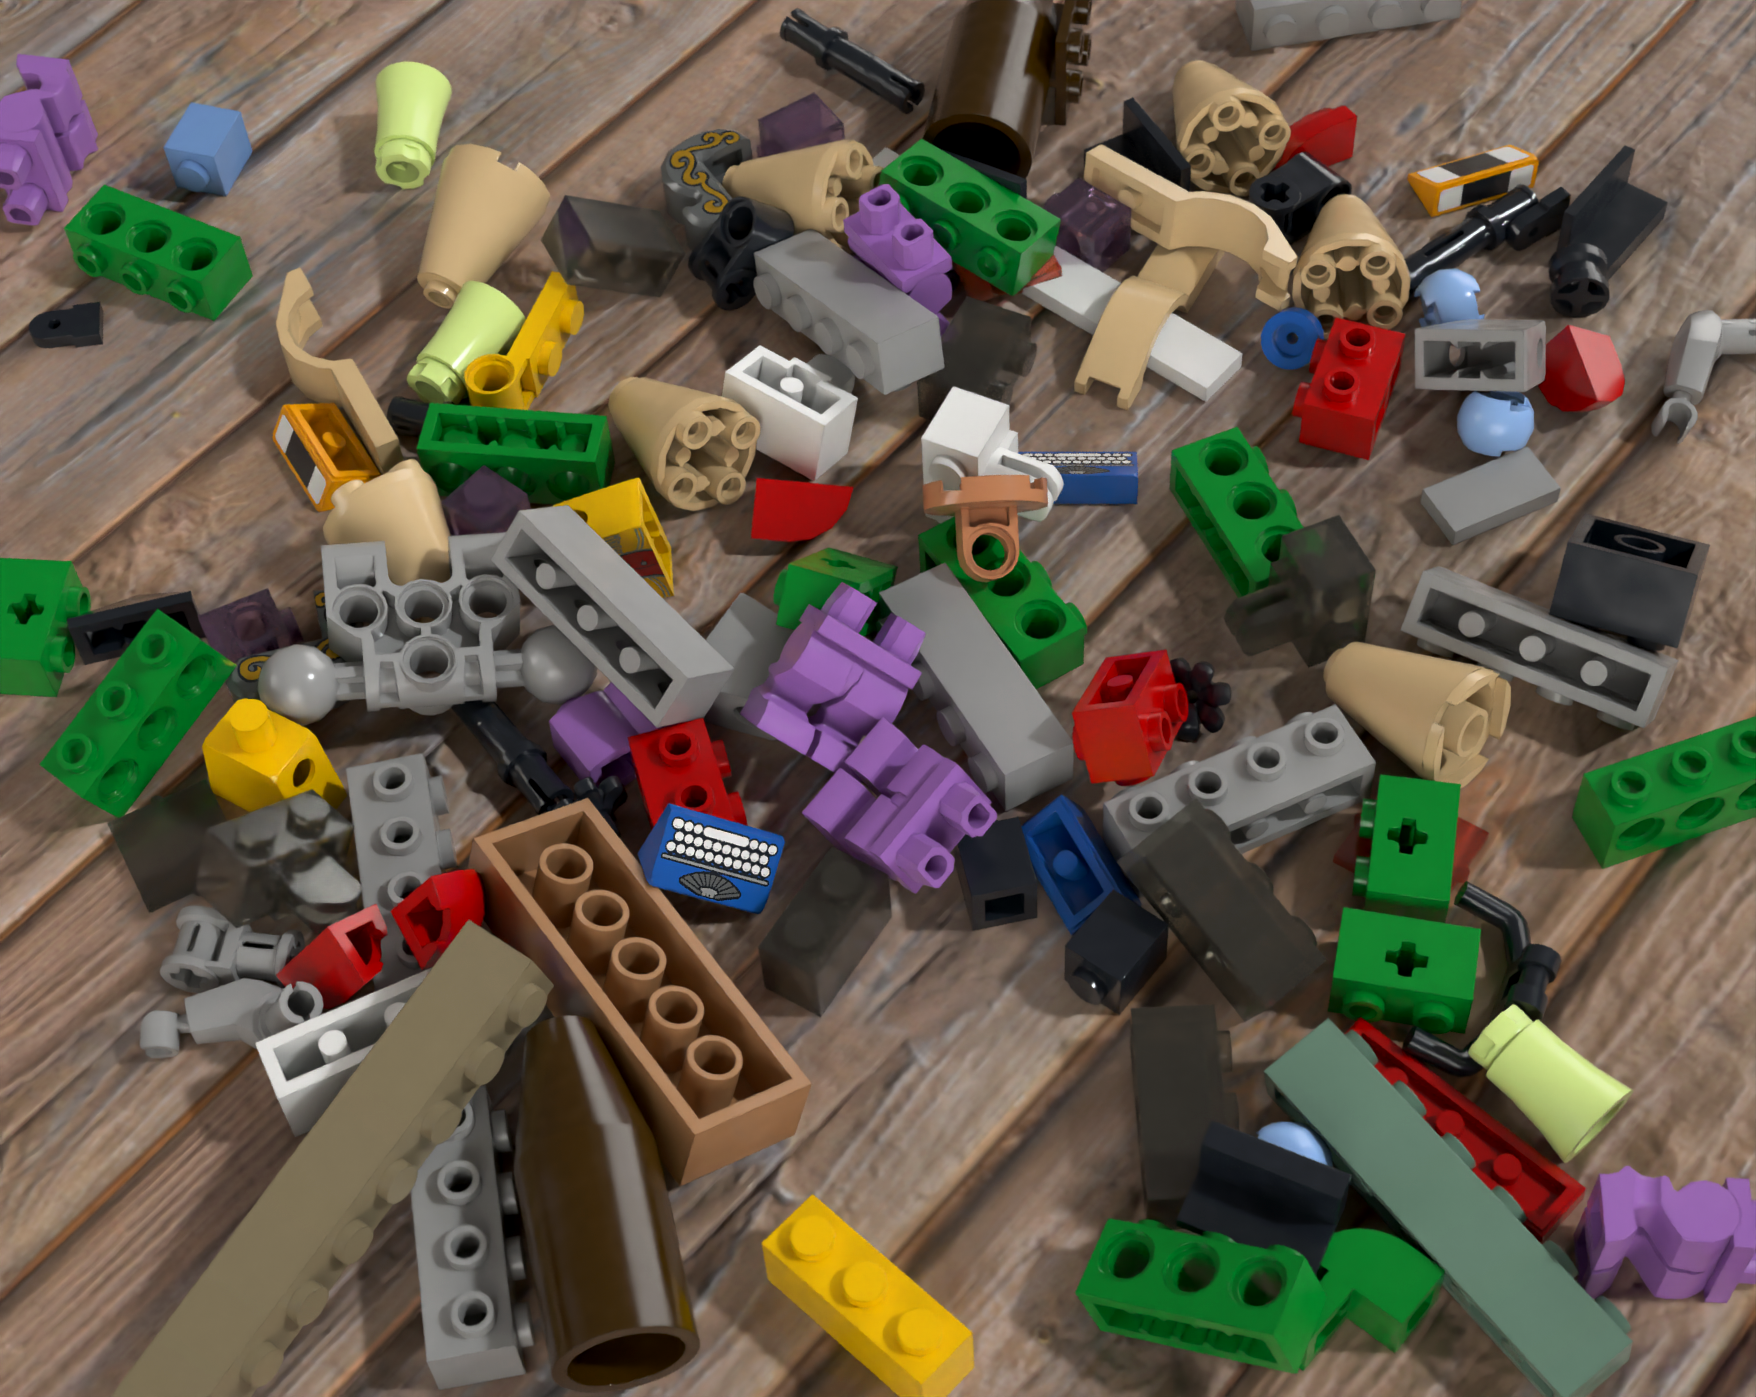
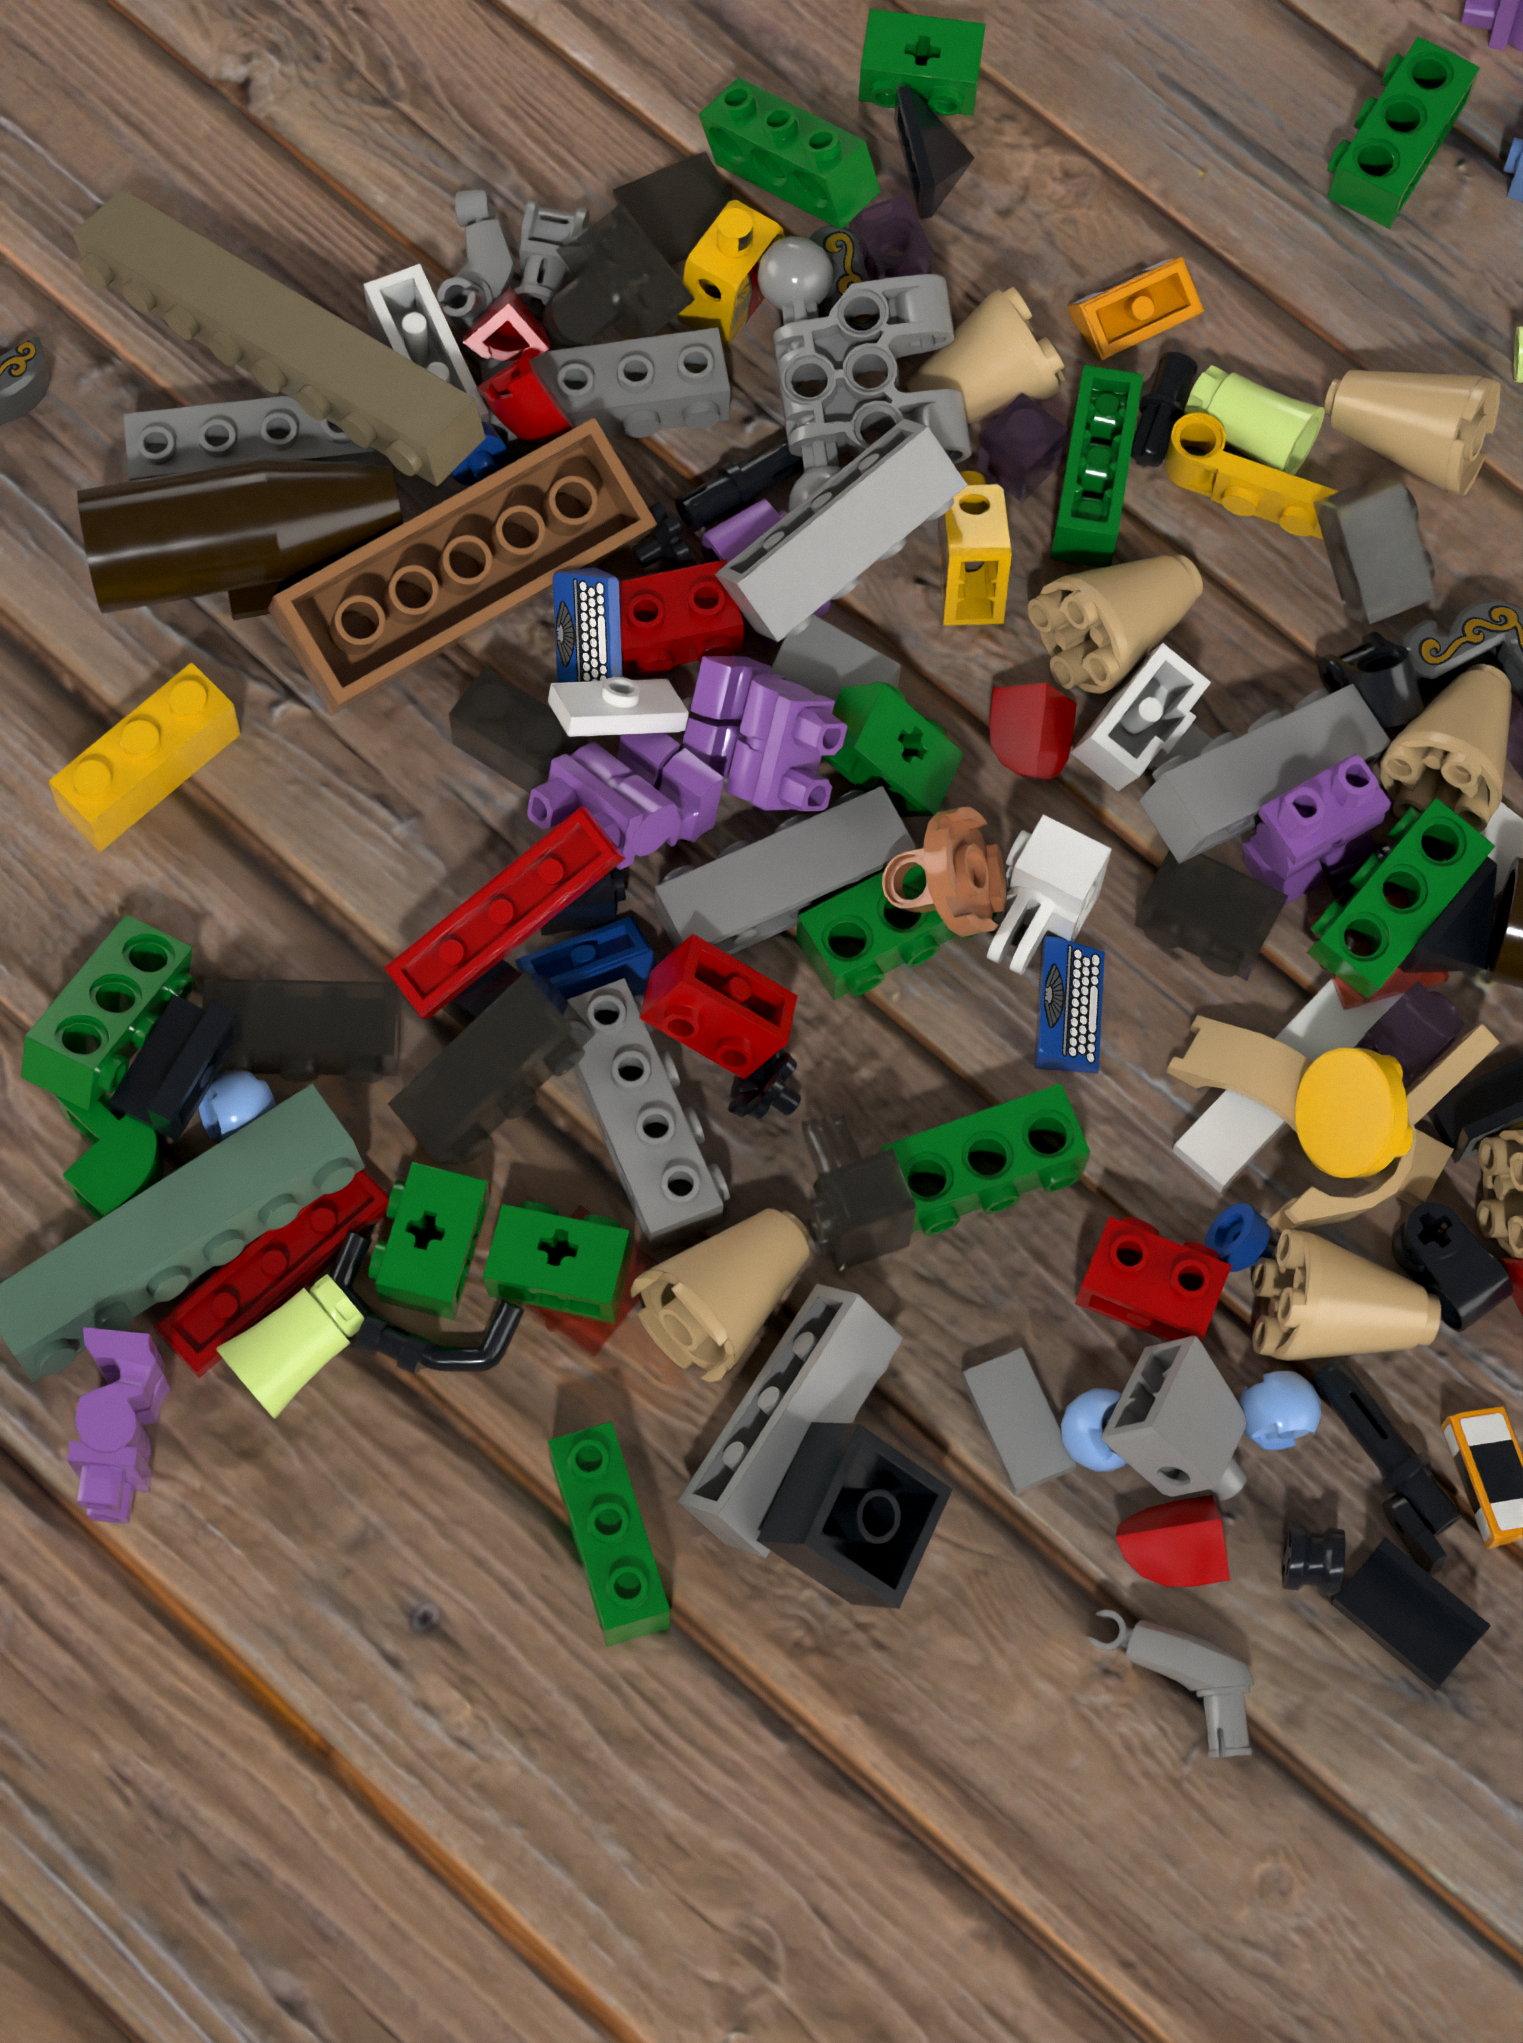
camera: 85 degrees right, 15 degrees up
(68, 327) = (1319, 75): black piece -> none
(328, 379) = (1199, 320): tan piece -> none
(803, 820) = (617, 707): none -> white plate
(1061, 886) = (504, 912): none -> red tile
(1182, 234) = (1353, 1112): none -> yellow tile

